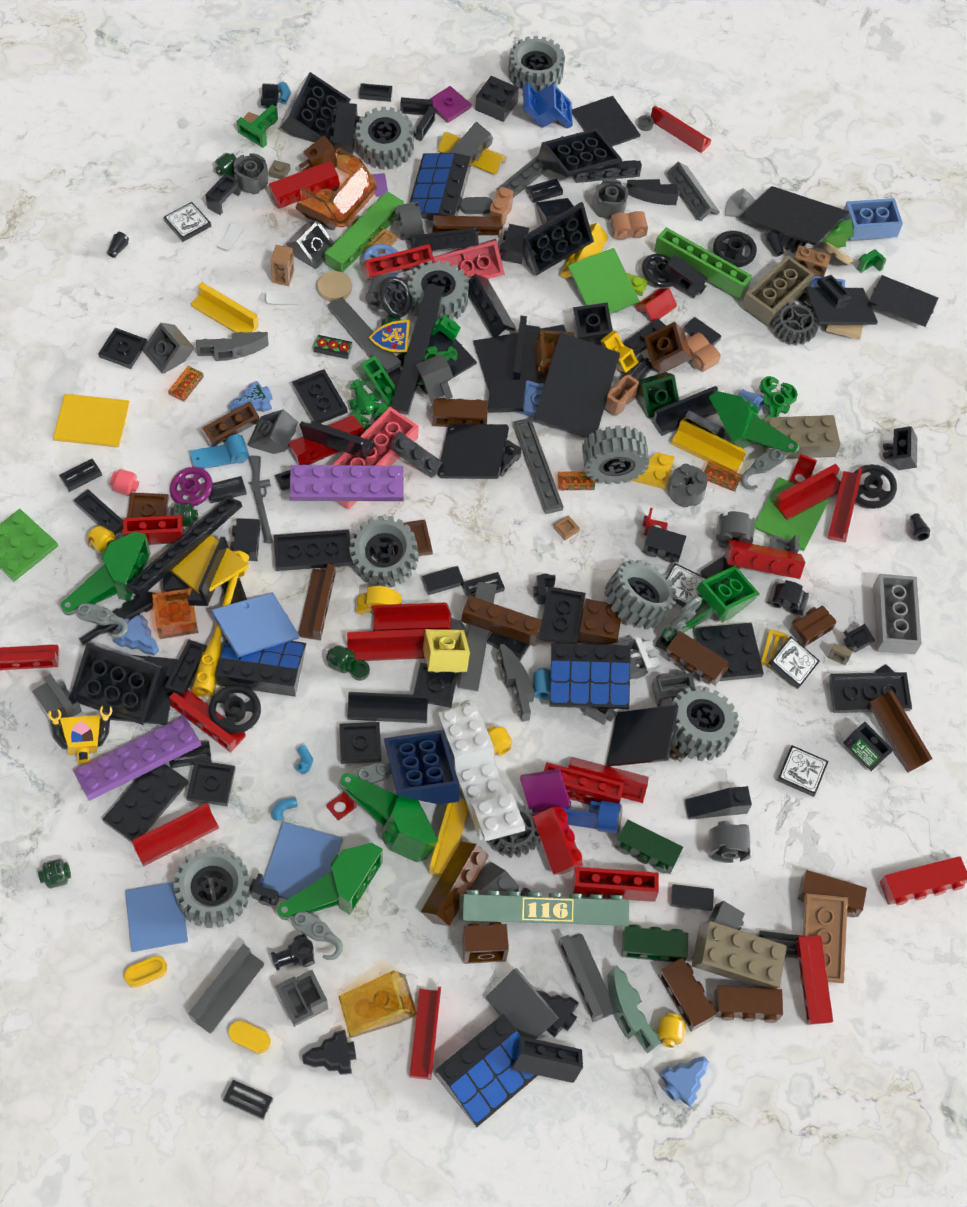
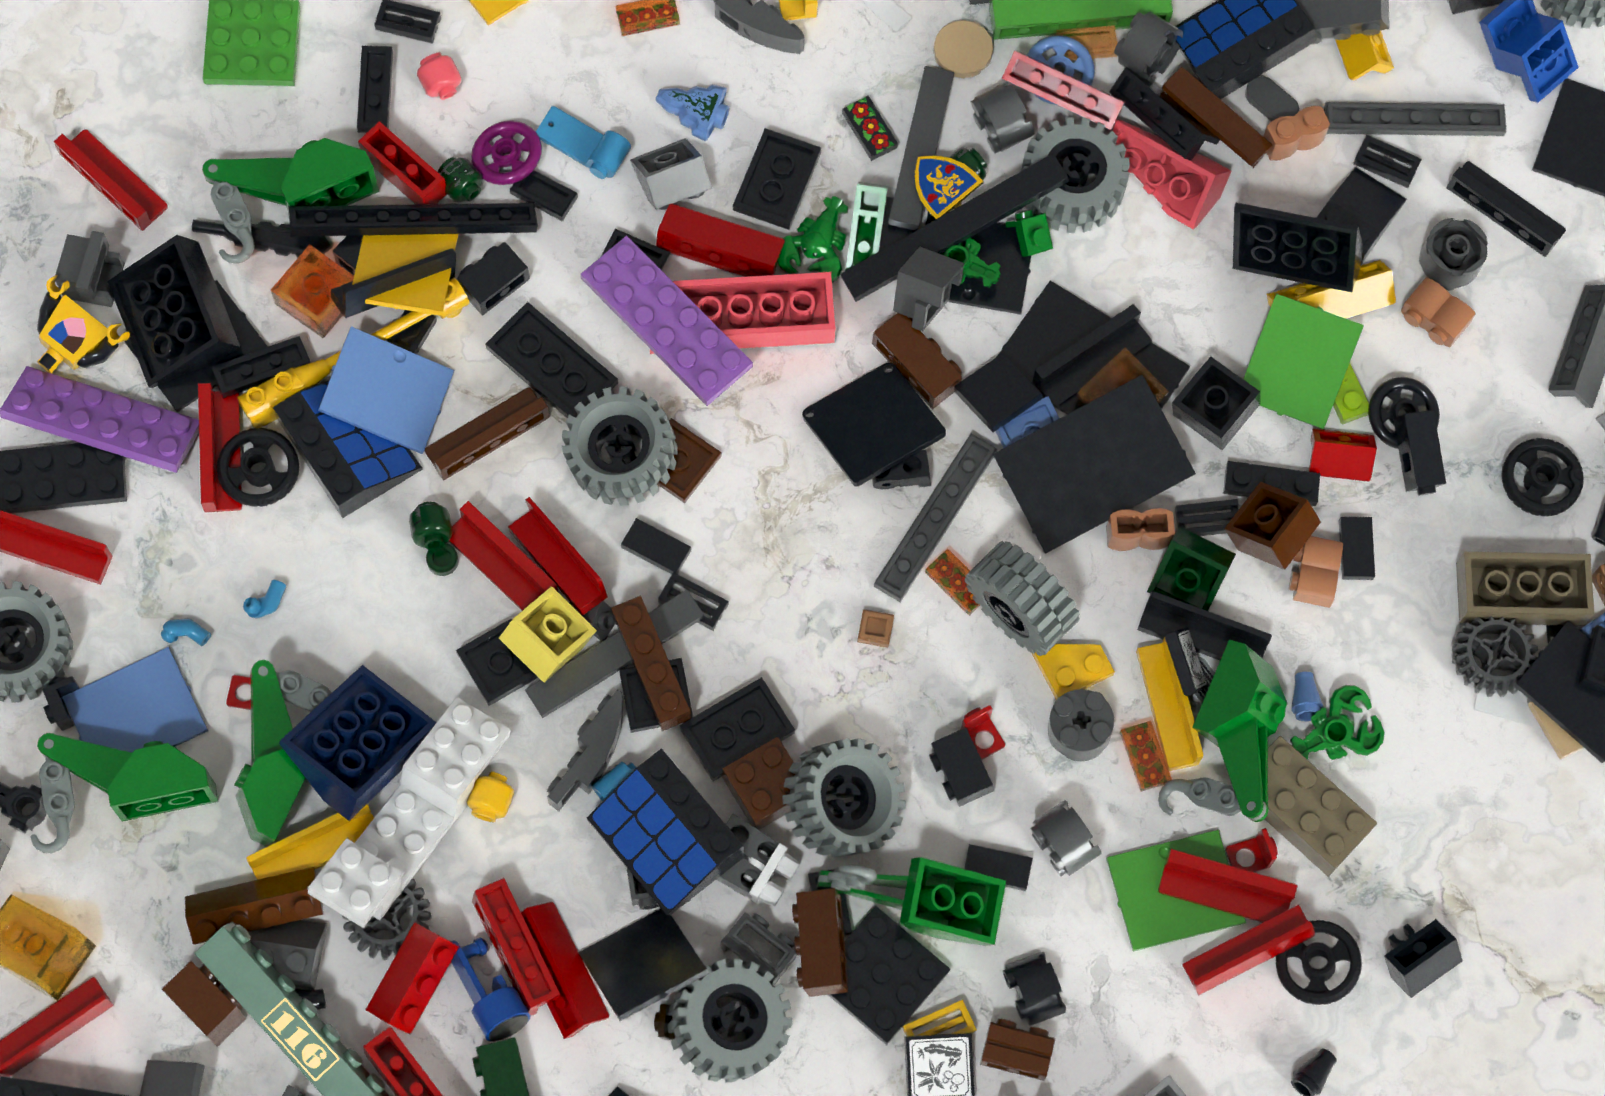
camera: 50 degrees right, 10 degrees up
(99, 538) = (339, 122): yellow head -> none
(138, 636) = (255, 278): medium blue rock -> none
(147, 505) = (433, 133): reddish brown tile -> none
(188, 762) = (181, 486): black tile -> none
(211, 783) = (143, 526): black plate -> none
(230, 424) = (629, 117): reddish brown brick -> none
(255, 462) = (581, 221): dark grey piece -> none
(337, 439) = (721, 254): black panel -> none
(360, 742) = (343, 642): black plate -> none
(376, 596) = (551, 499): yellow brick -> none
(387, 707) = (418, 636): black panel -> none
(395, 297) = (977, 127): black plate -> none
(415, 454) = (794, 361): black plate -> none
(489, 305) = (1124, 253): black panel -> none
(513, 246) = (1260, 189): black brick -> none
(541, 583) = (748, 671): black bracket -> none
(545, 790) = (462, 908): magenta tile -> none
(578, 153) = (1480, 153): black slope -> none
(627, 357) = (1206, 460): yellow brick -> none
(653, 191) = (1529, 295): black slope -> none
(684, 582) = (928, 835): tile -> none
(716, 269) = (1468, 456): bright green brick -> none
(764, 559) = (1055, 910): red brick -> none
(784, 544) = (1106, 920): dark grey bracket -> none

